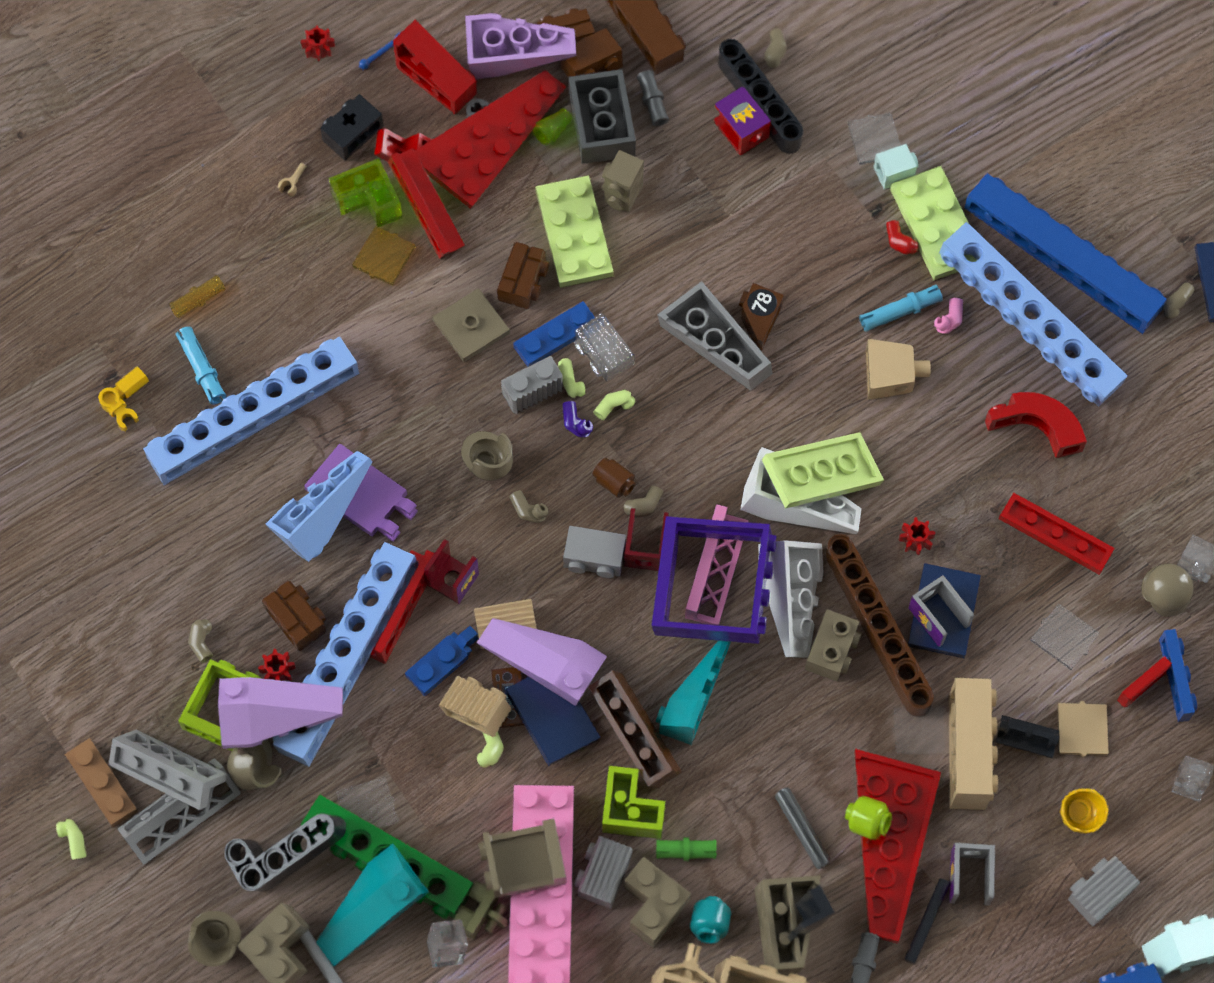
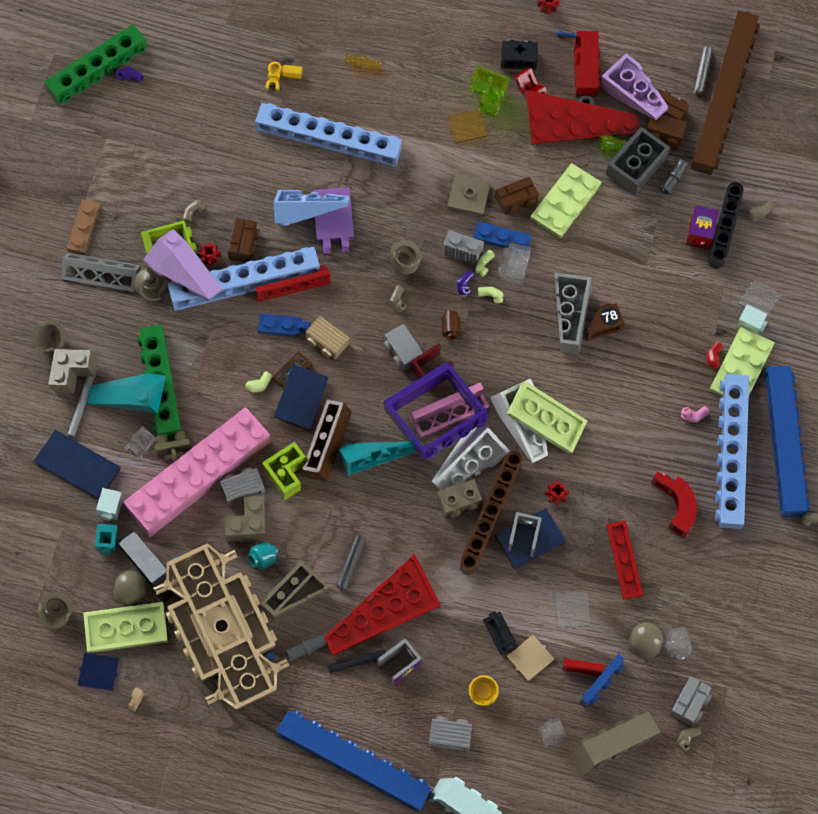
camera: 45 degrees right, 0 degrees up
(75, 837) = (46, 237): yellowish green arm -> none
(165, 768) = (109, 245): light grey fence -> none
(204, 373) = (327, 99): medium azure pin -> none
(289, 847) = (105, 331): black beam -> none
(292, 181) = (464, 53): tan hand -> none
(425, 203) = (509, 119): red fence -> none
(441, 565) = (329, 283): dark red piece -> none
(475, 705) = (271, 357): tan brick -> none
(523, 860) = (208, 439): dark tan panel -> none
(548, 658) = (326, 372): lavender wedge -> none
(623, 181) = (611, 198): dark tan brick -> none
(646, 505) = (451, 352): dark tan arm -> none
(685, 849) = (289, 515): bright green pin -> none
(814, 910) = (298, 599): black panel -> none
(868, 817) = (381, 586): lime head -> none
(892, 368) = (636, 408): tan torso -> none
(900, 308) = (676, 386): medium azure pin -> none
(971, 744) = (466, 606): tan brick -> none

